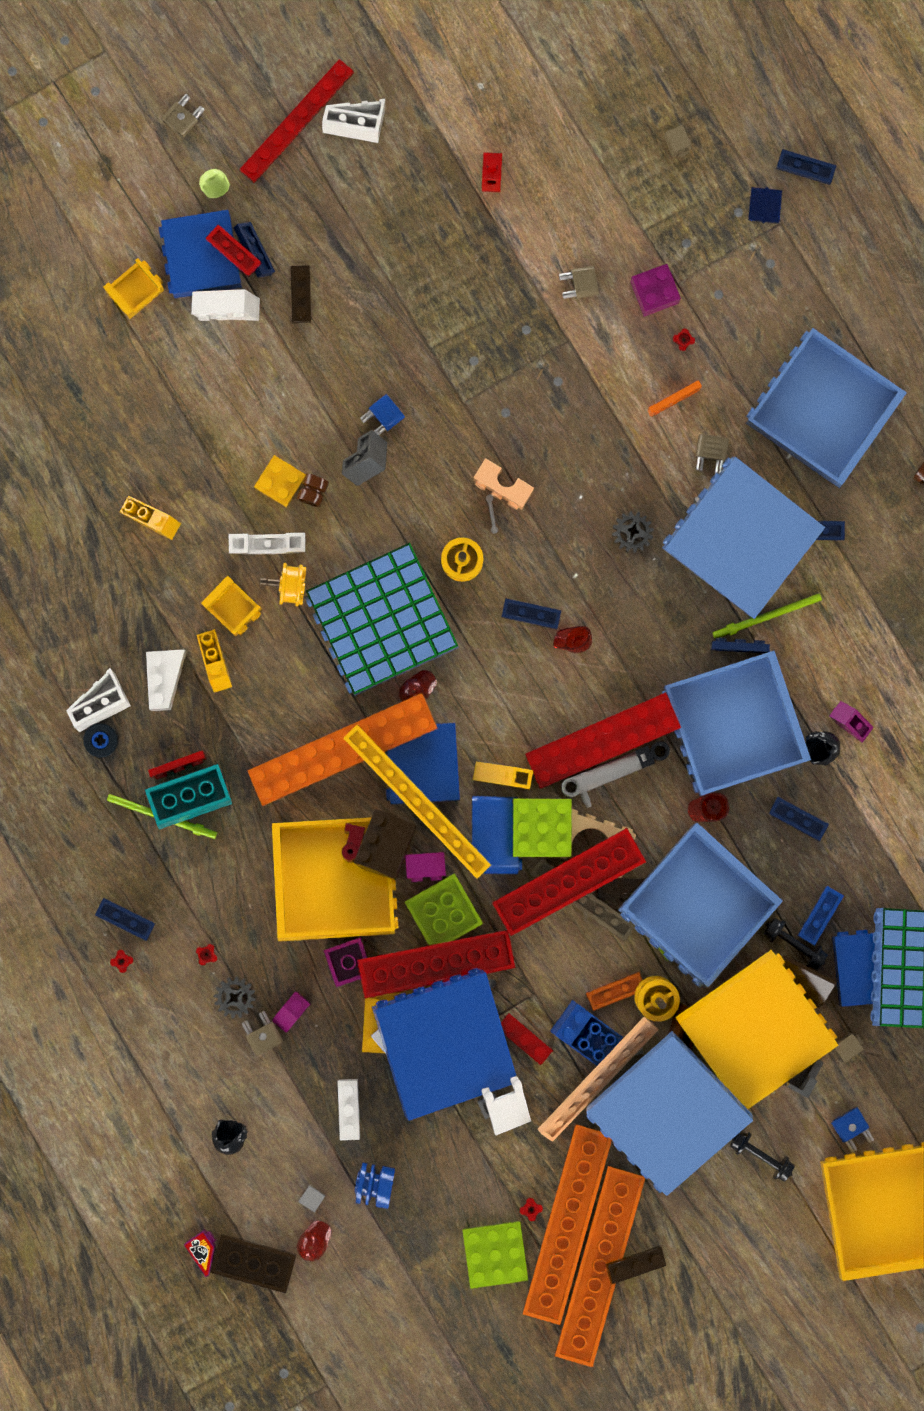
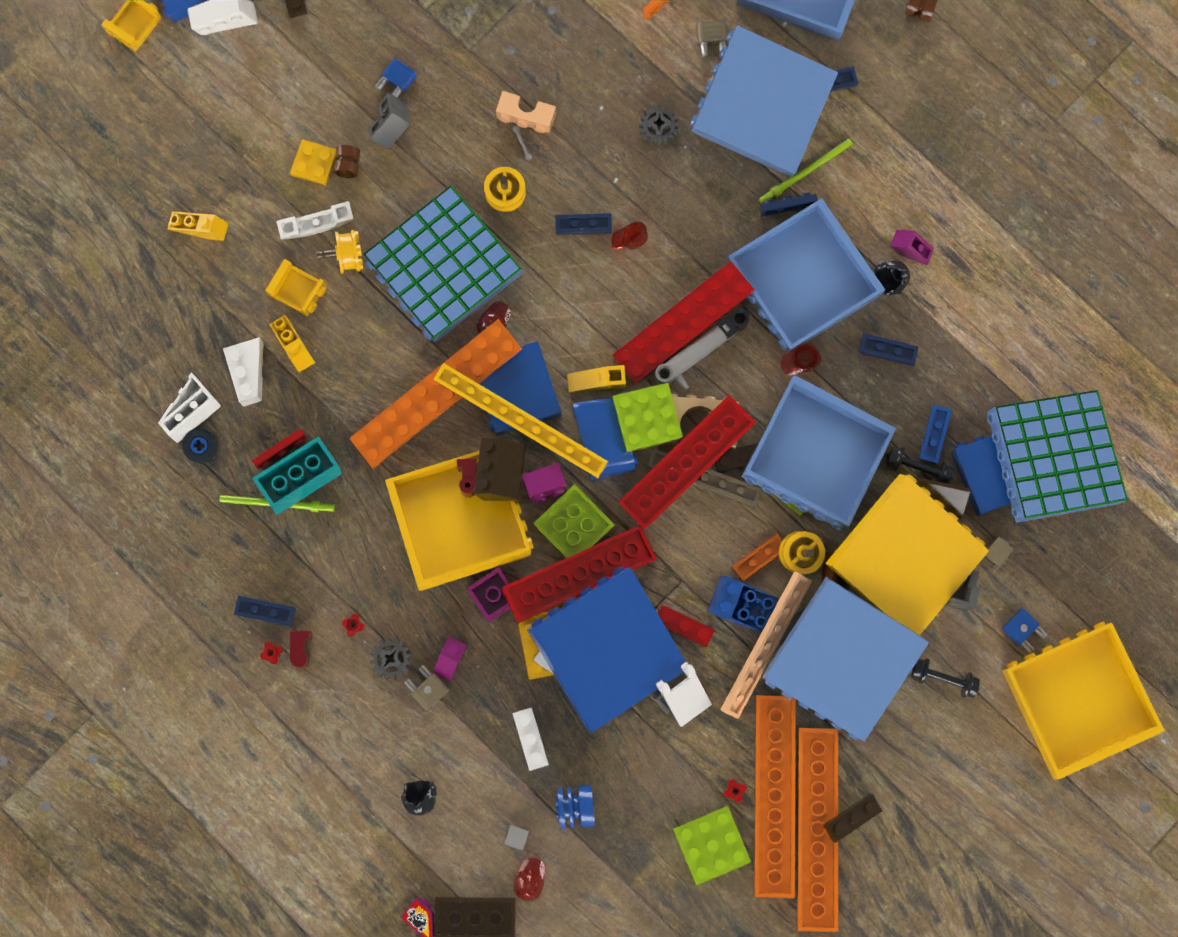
camera: 15 degrees left, 5 degrees down
(148, 964) = (298, 648): none -> dark red leg

